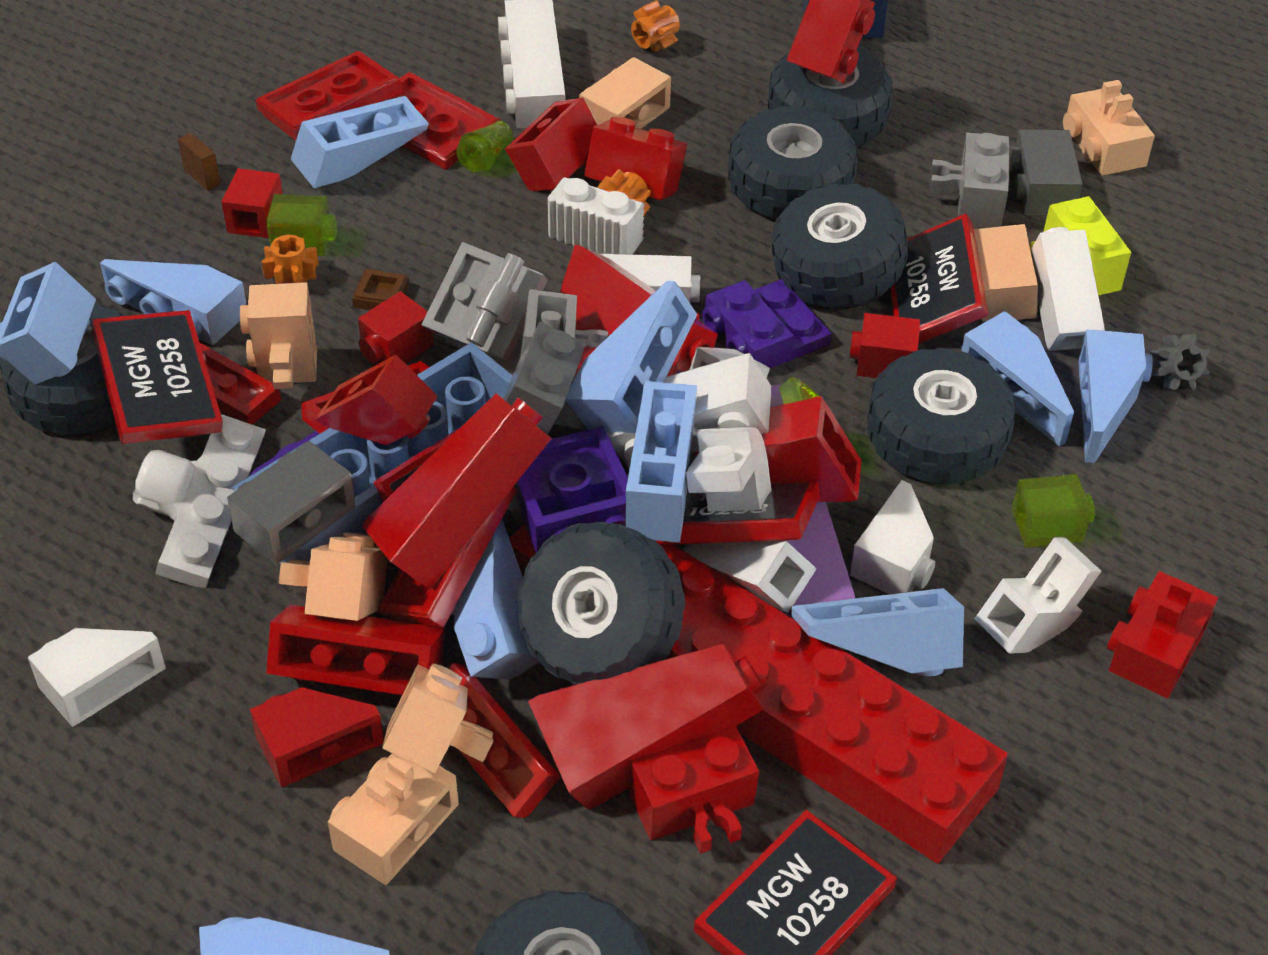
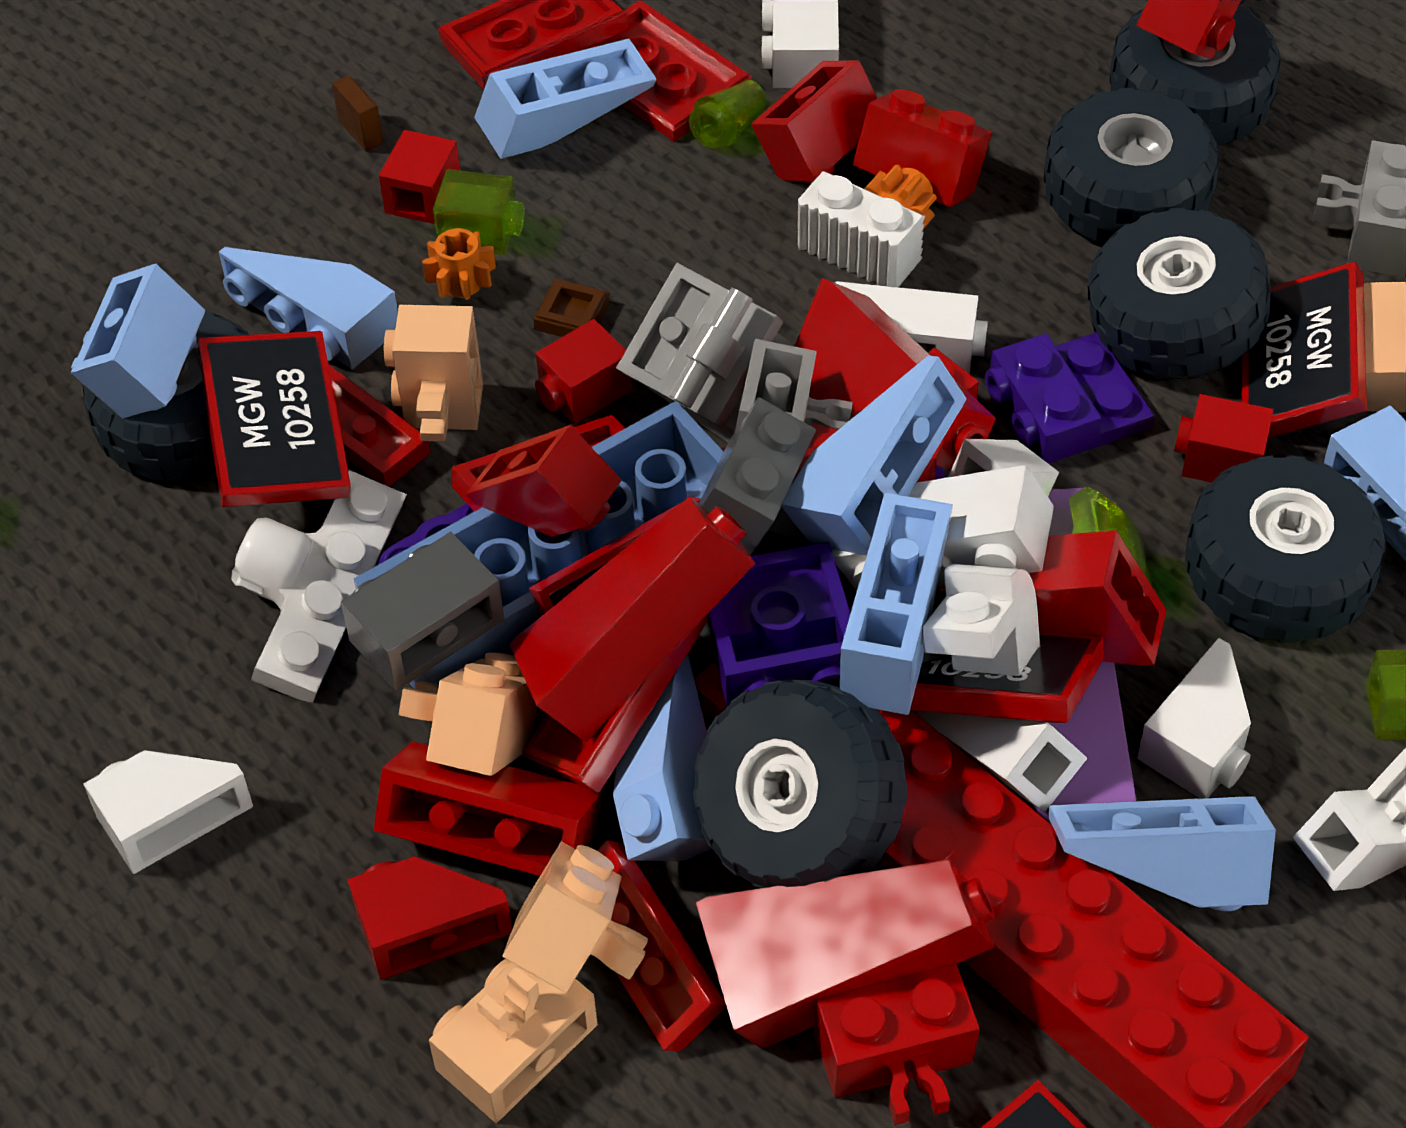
camera: 10 degrees right, 5 degrees up
(630, 92) = (923, 54): light nougat brick -> none

